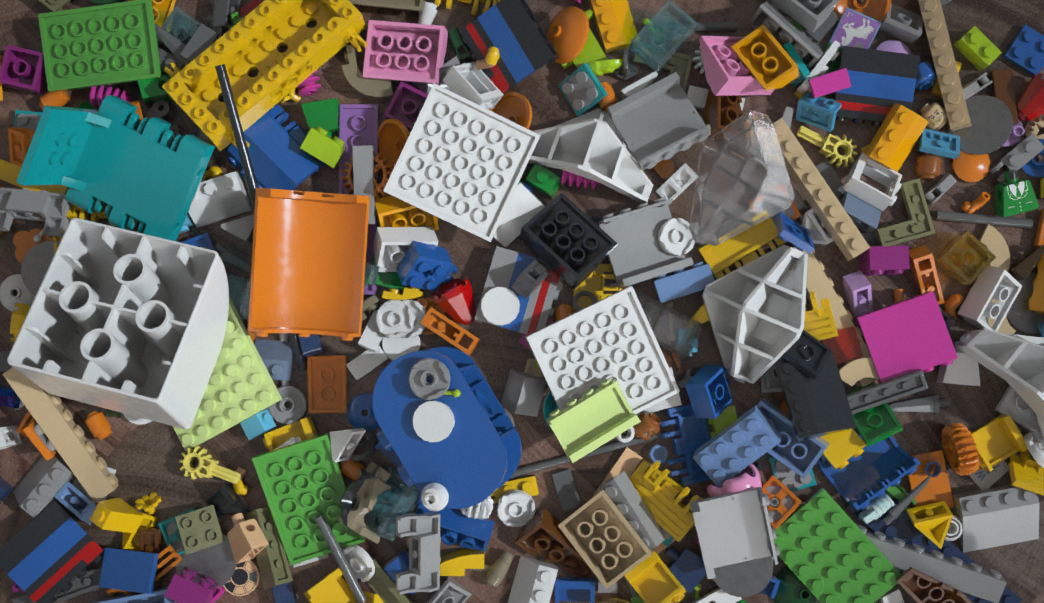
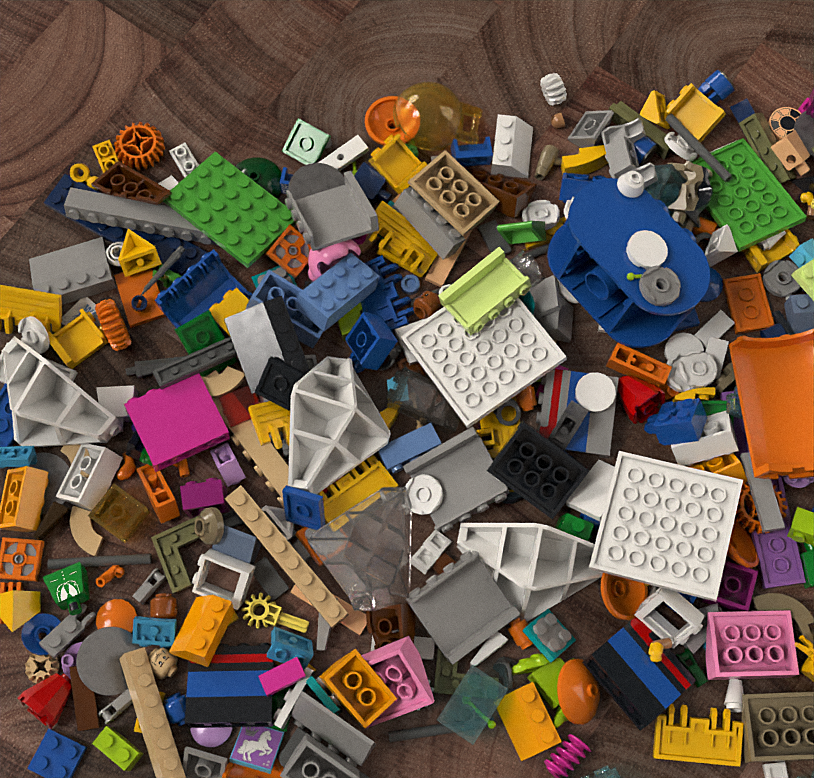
camera: 175 degrees right, 15 degrees down
(530, 416) = (546, 297): none -> light grey tile
(538, 489) = (523, 232): none -> bright green tile
(540, 448) = (528, 267): none -> clear cylinder
(876, 508) = (191, 258): light aqua hinge -> none
(884, 228) = (209, 526): none -> dark tan piece

